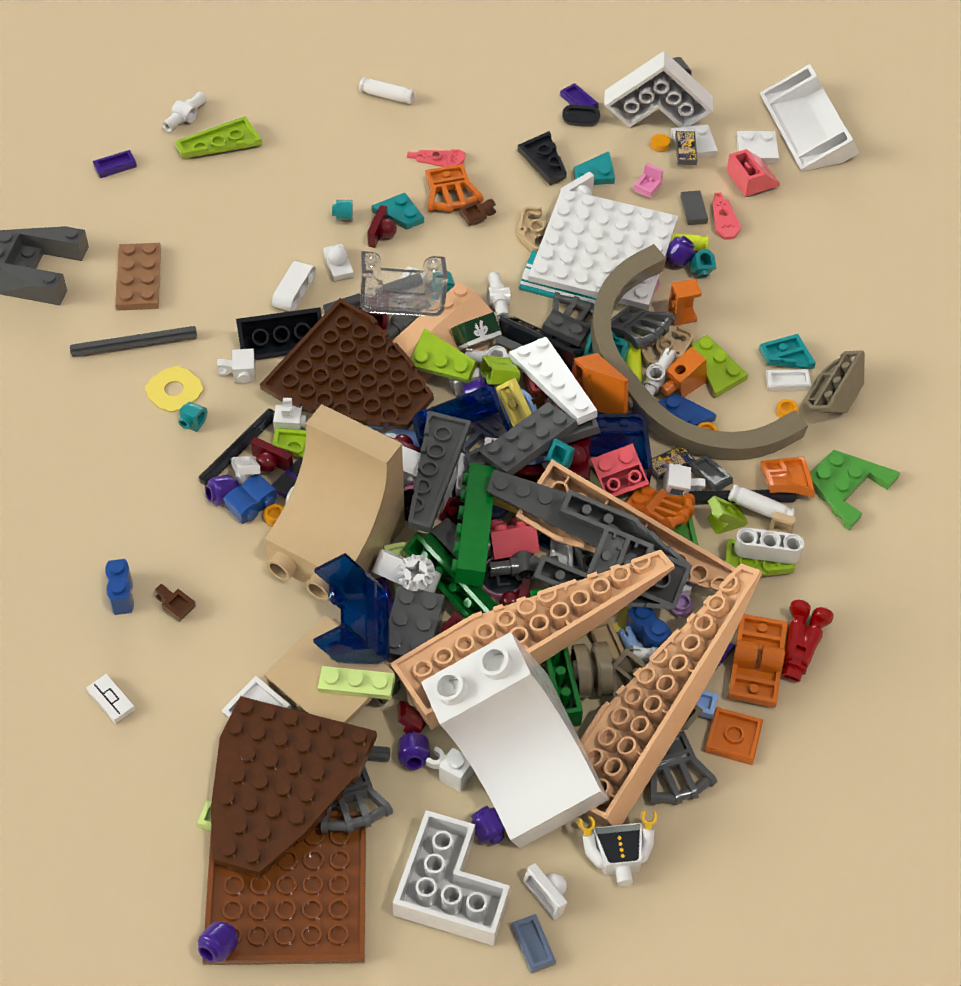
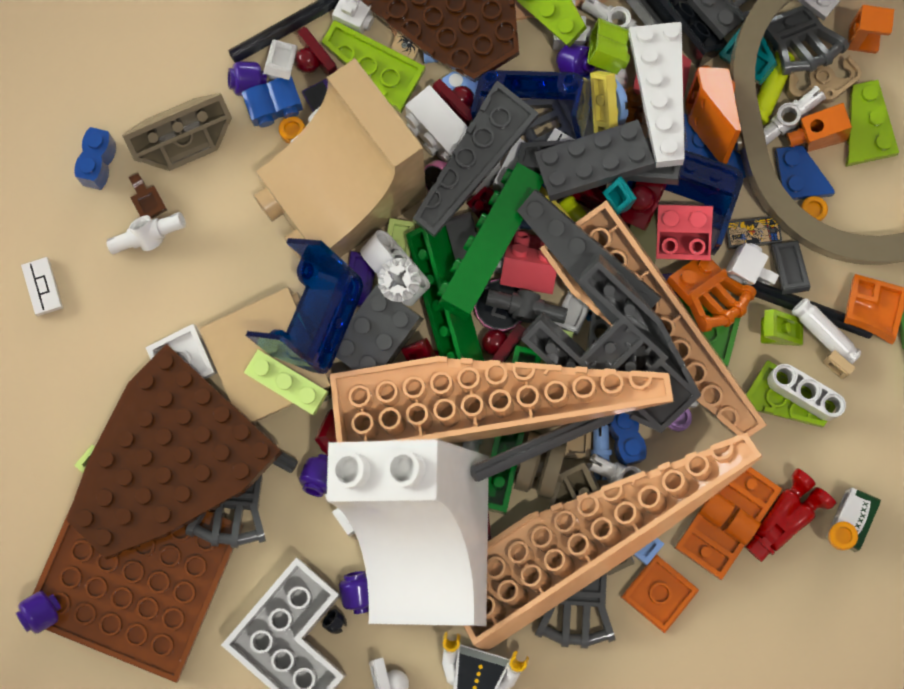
camera: 25 degrees right, 25 degrees up
(186, 543) = (180, 133): none -> dark tan wedge
(186, 624) = (146, 233): none -> white pin
(479, 859) = (334, 621): none -> black hinge
(587, 643) = (535, 447): none -> dark grey axle
(851, 631) = (842, 536): none -> light orange tile
(852, 623) = (859, 510): none -> piece

